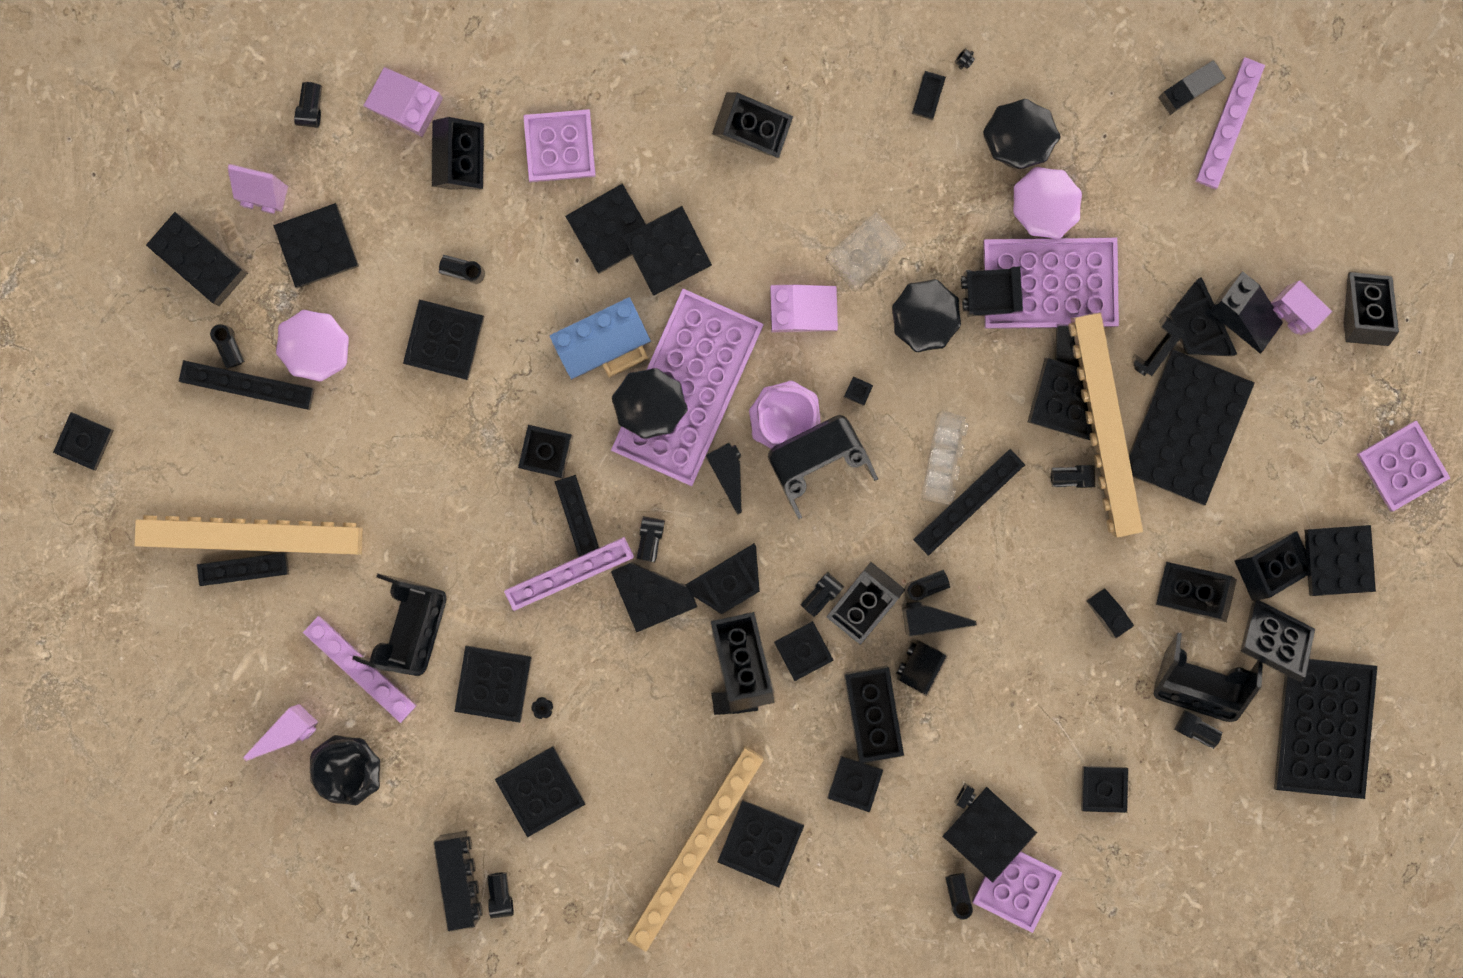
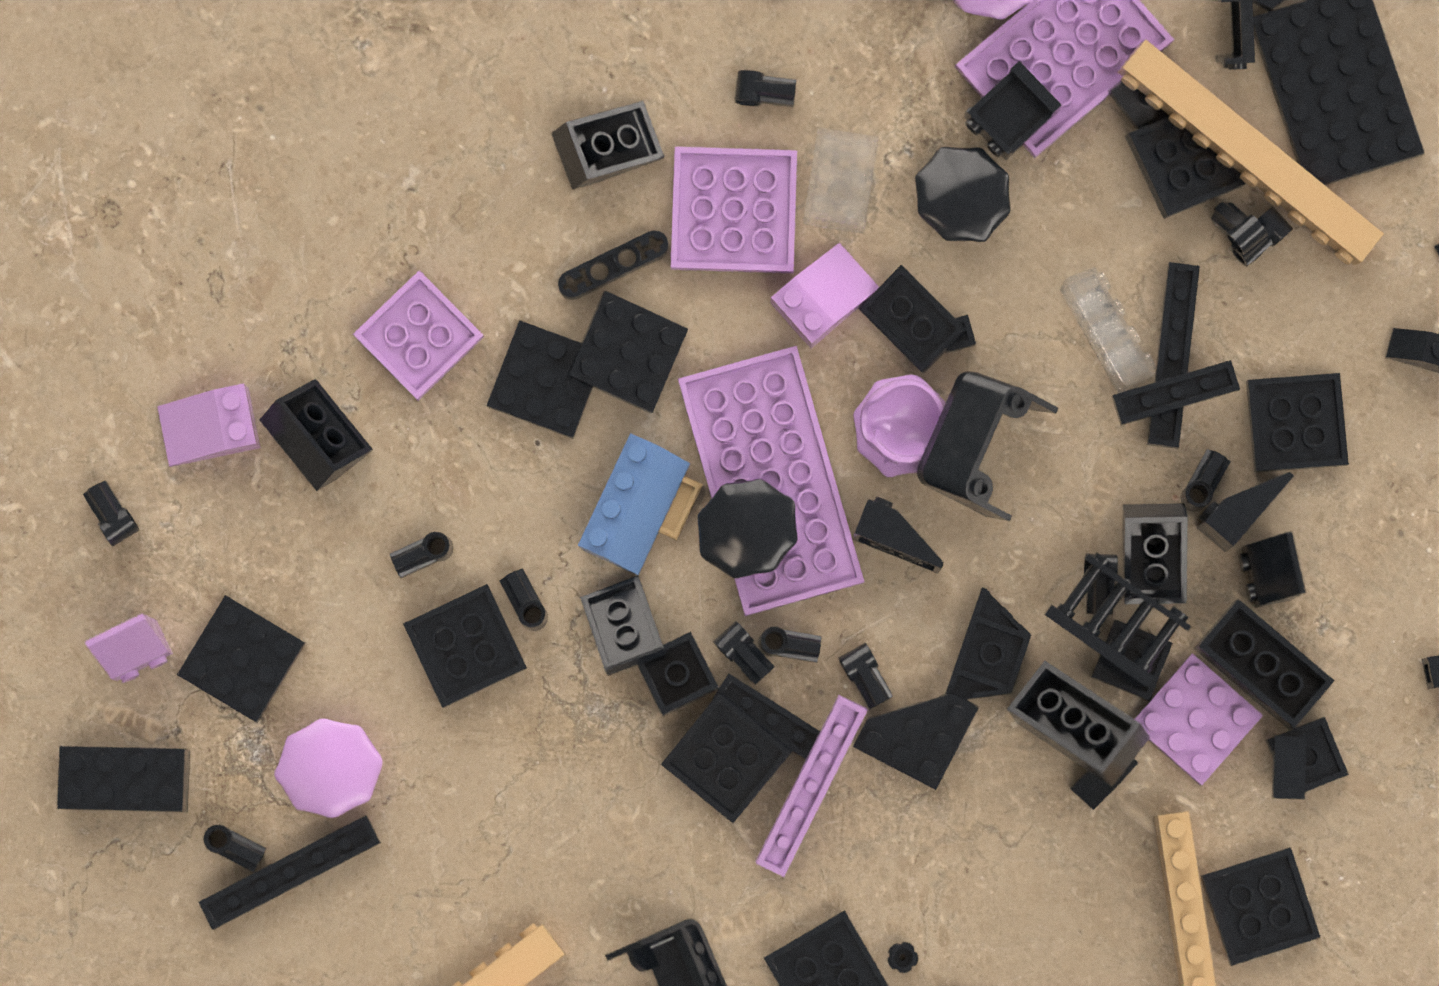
camera: 40 degrees left, 5 degrees down
(497, 339) = (523, 597): none -> black piece
(535, 519) = (726, 757): none -> black plate
(538, 400) = (622, 625): none -> tile
(593, 464) = (739, 647): none -> black piece
(624, 489) = (793, 645): none -> black piece
(701, 191) = (611, 261): none -> black beam
(792, 219) = (734, 210): none -> lavender plate
(797, 638) = (1090, 631): none -> black fence
(812, 712) = (1197, 719): none -> lavender plate
(839, 781) = (1289, 767): none -> black tile
(840, 362) = (912, 319): none -> black tile
(862, 162) = (756, 89): none -> black piece
(951, 524) = (1175, 392): none -> black plate
(1006, 596) = (1297, 422): none -> black plate
(1064, 463) = (1241, 230): none -> black piece

